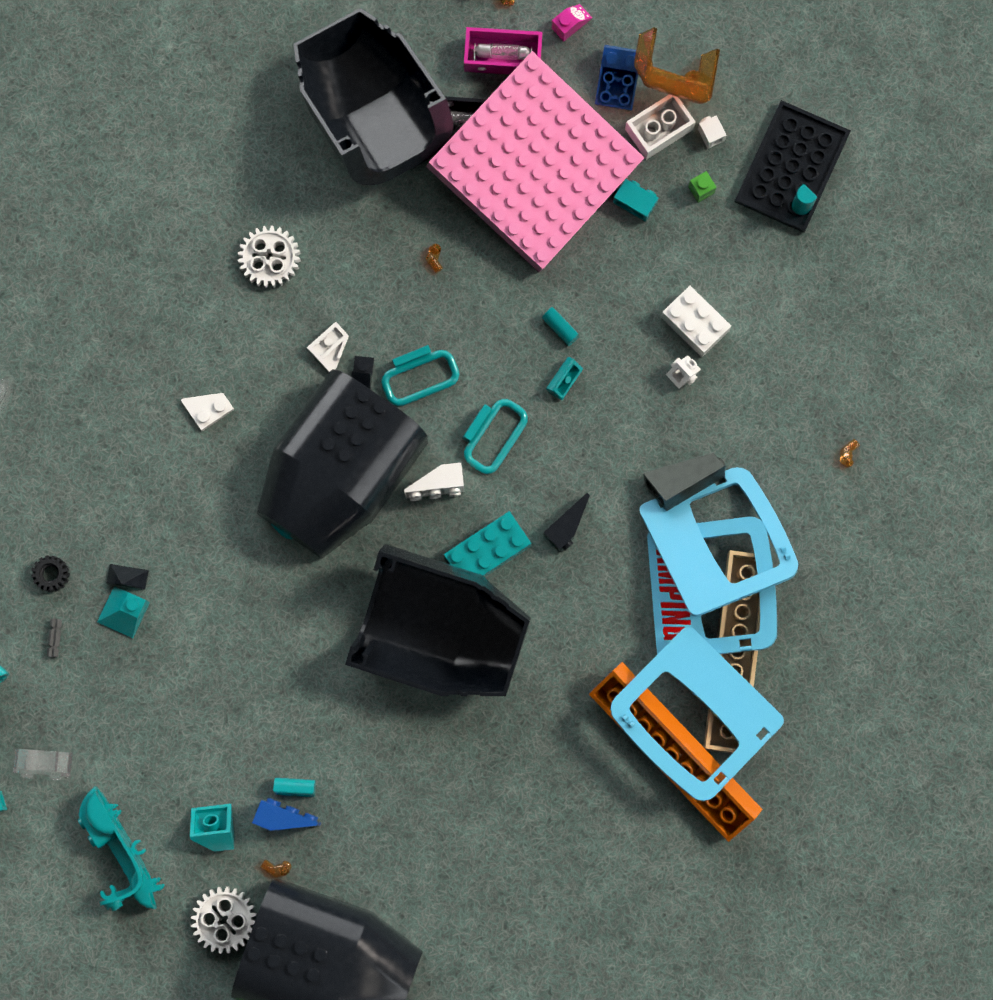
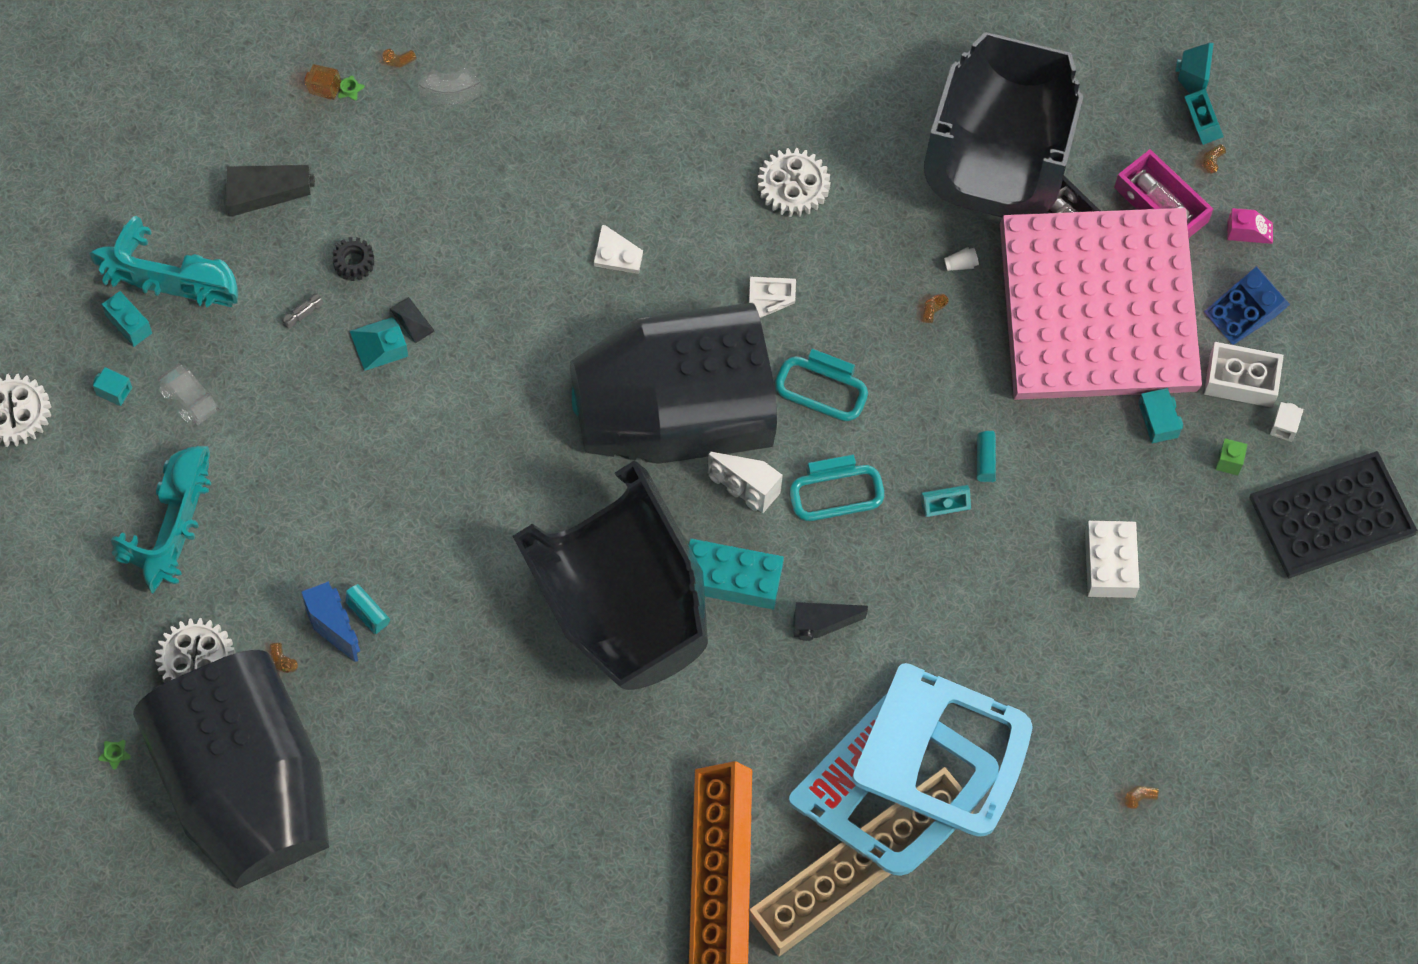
camera: 40 degrees right, 15 degrees down
(213, 827) = (266, 575): teal slope -> none
(363, 370) = (778, 339): black slope -> none
(421, 210) = (962, 260): none -> white cone
(683, 371) = (1057, 588): white brick -> none
(684, 479) = (966, 676): pearl dark grey slope -> none
(694, 86) = (1304, 369): clear orange windscreen -> none
(720, 688) = (814, 867): medium azure door -> none
(803, 200) = (1311, 542): teal brick -> none

